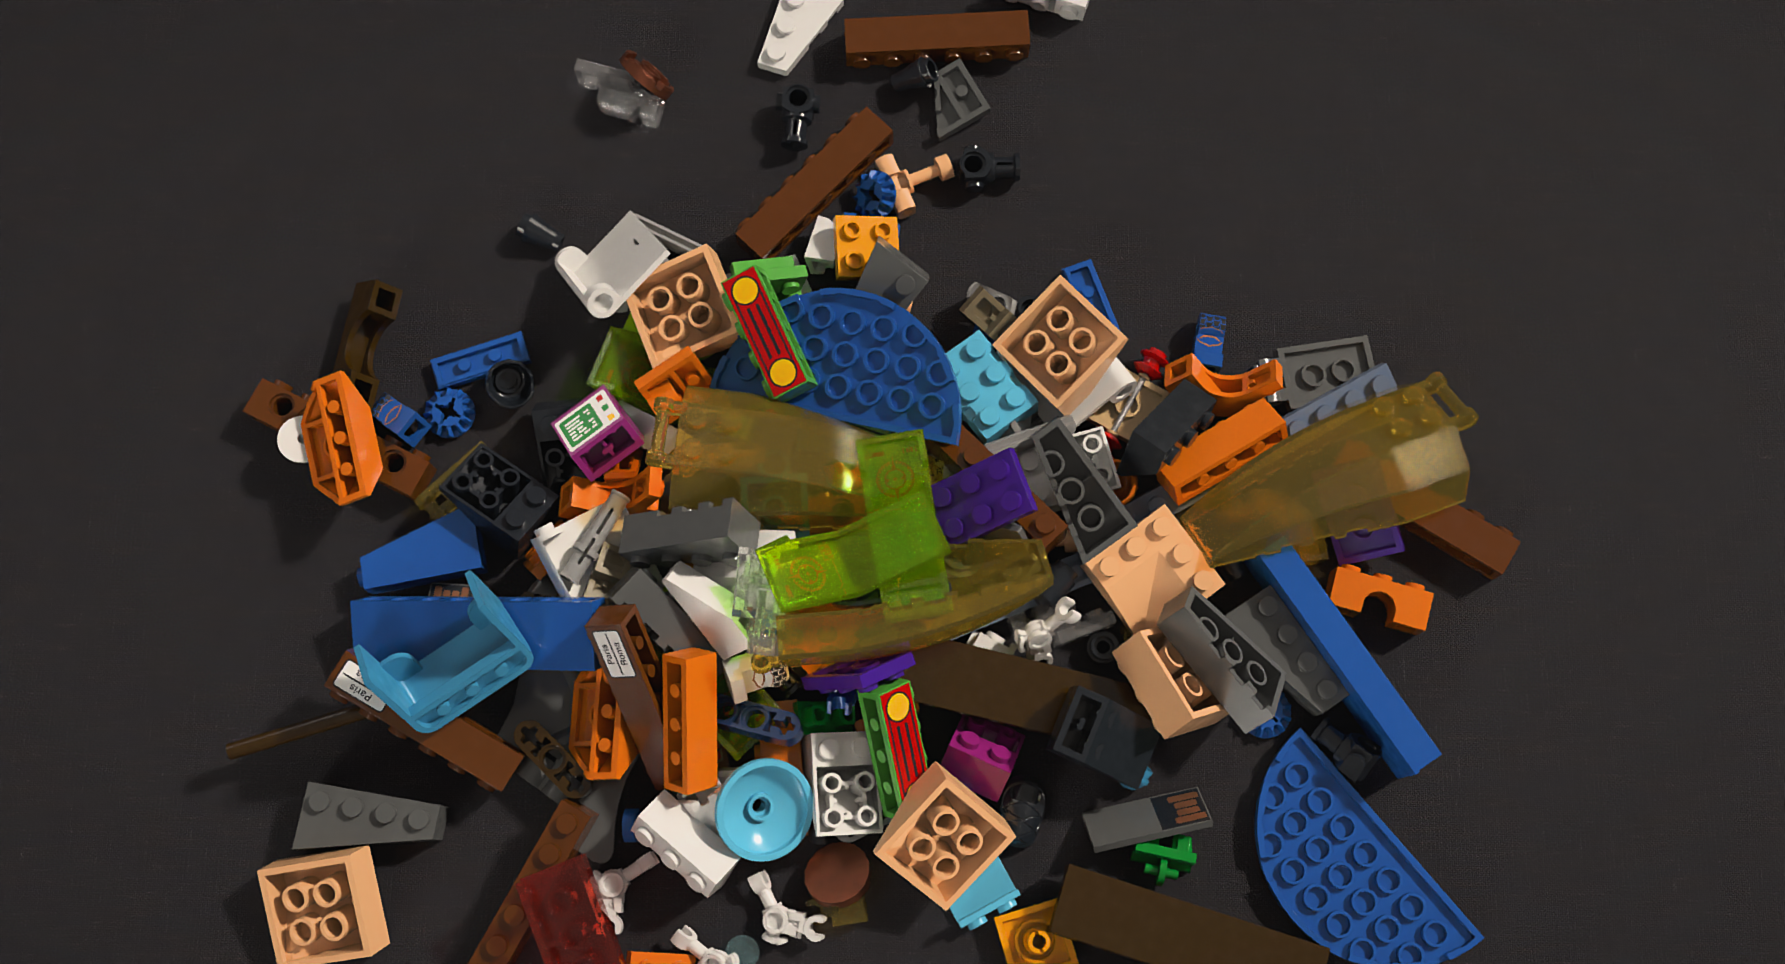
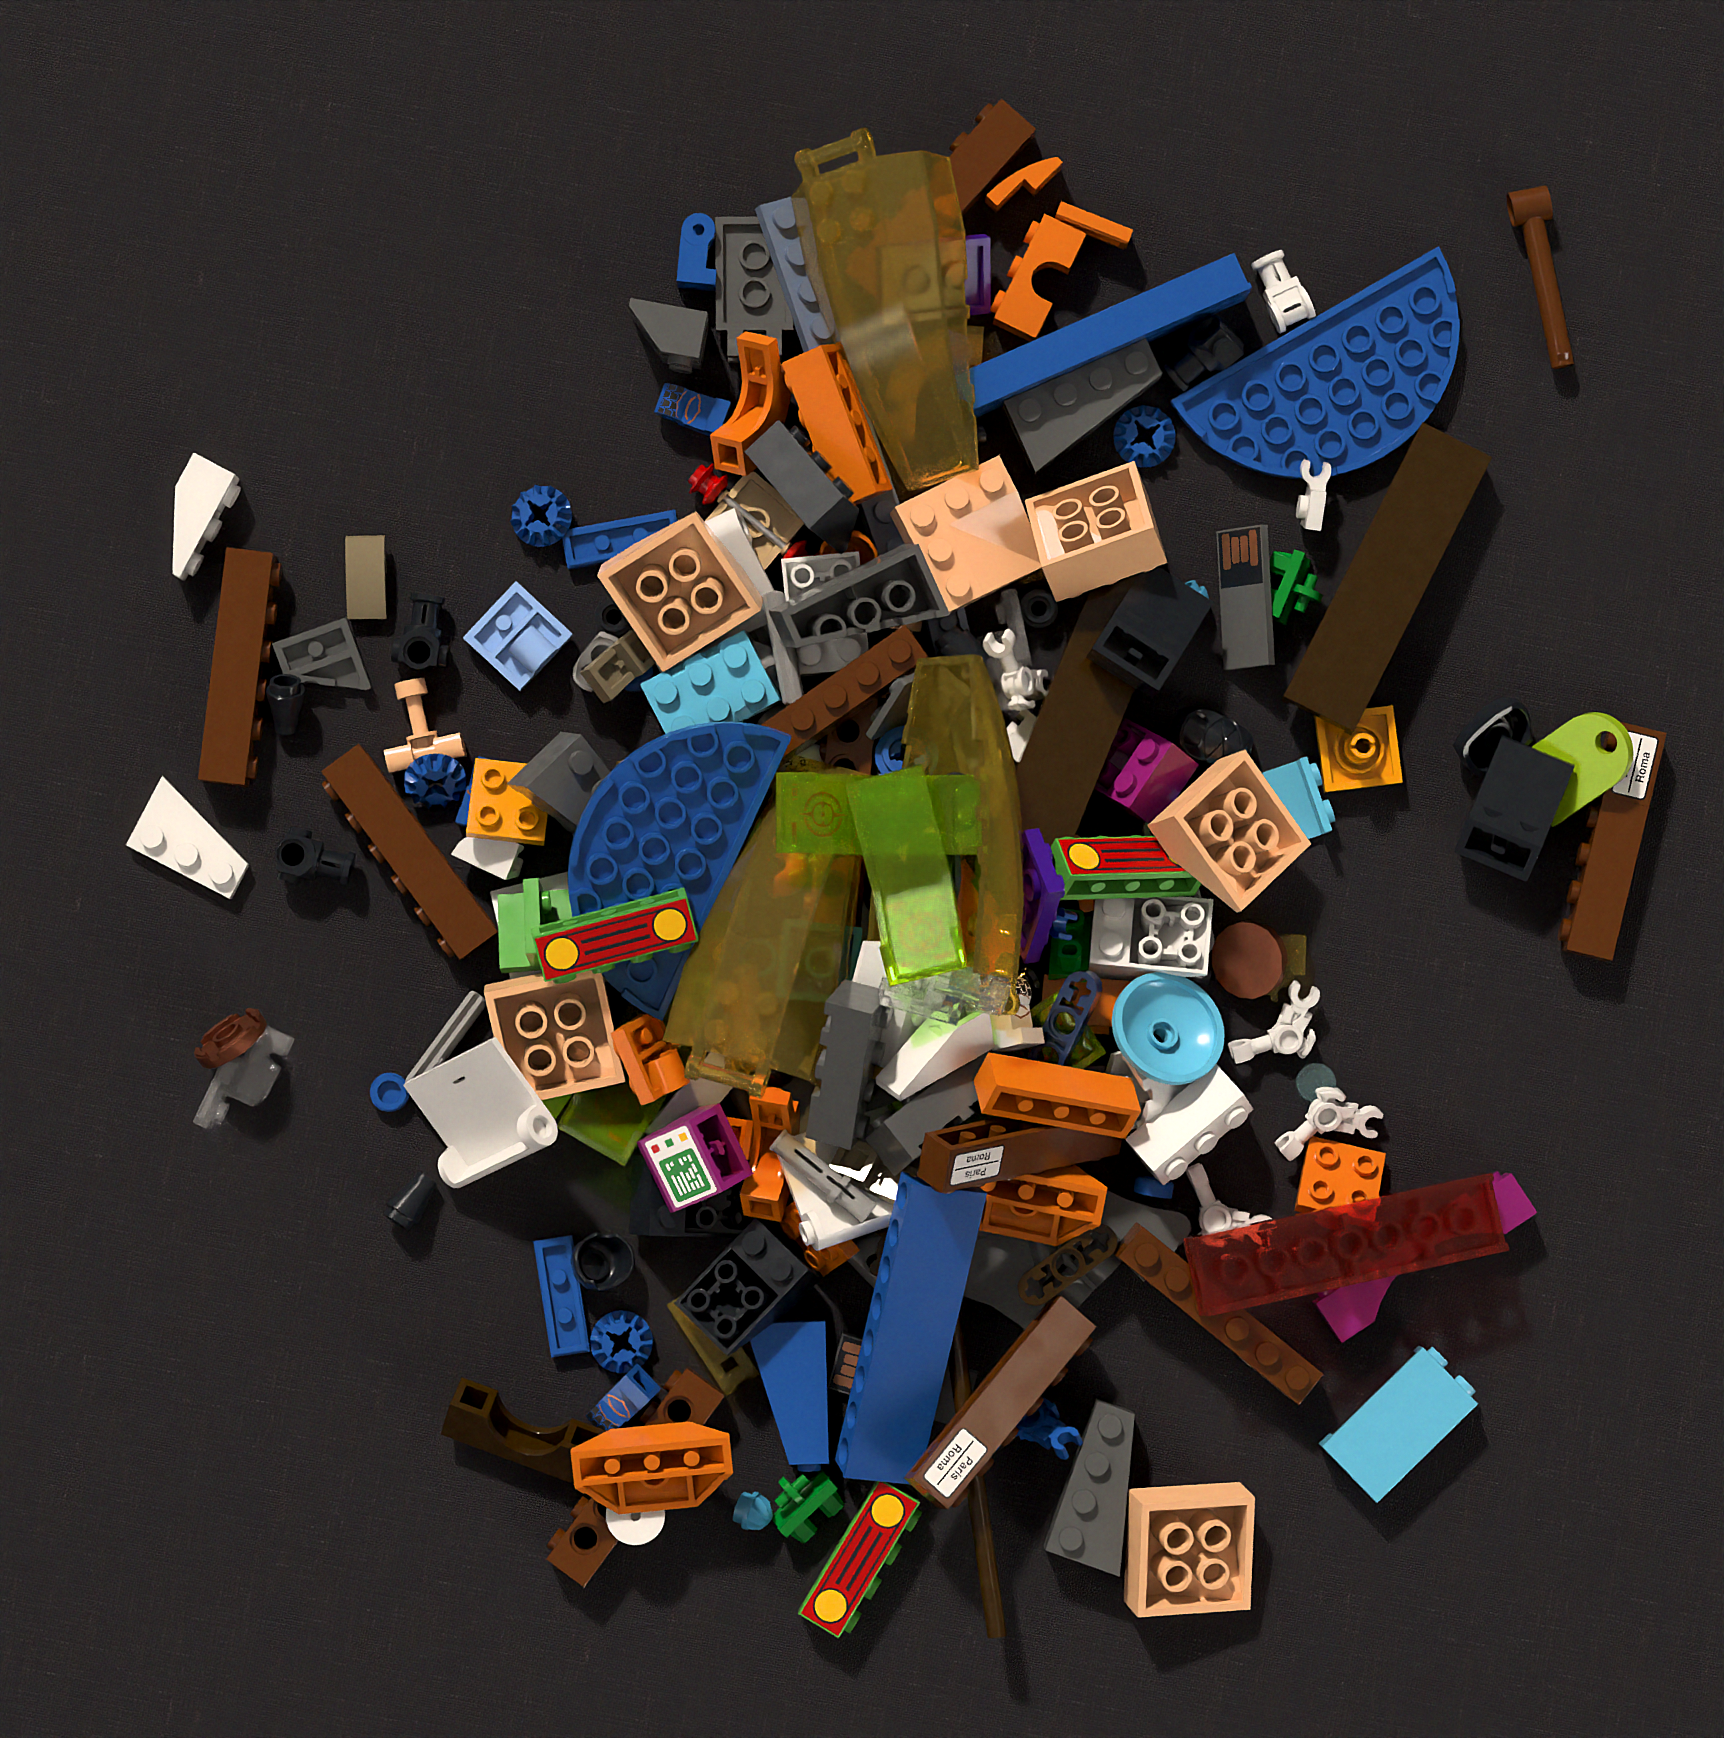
camera: 85 degrees left, 10 degrees up
(286, 627) = (859, 1557): none -> brick
(321, 537) = (752, 1511): none -> dark azure plate
(335, 575) = (801, 1500): none -> green hips
(413, 766) = (1048, 1430): none -> blue piece
(455, 674) = (958, 1352): dark azure windscreen -> none
(624, 201) = (388, 1092): none -> blue tile
(983, 498) = (858, 717): dark purple plate -> none
(1000, 240) = (518, 636): none -> light blue plate
(1025, 119) = (366, 577): none -> dark tan slope
(1103, 253) = (558, 515): none -> blue gear
(1224, 659) = (1085, 475): dark grey wedge -> none
(1237, 863) = (1311, 506): none -> white plate
(1268, 315) = (673, 333): none -> dark grey slope
(1334, 323) = (696, 240): none -> blue leg
(1410, 811) = (1282, 292): none -> white connector
(1432, 639) = (1094, 225): none -> orange tile
(1460, 581) = (1031, 177): none -> orange slope

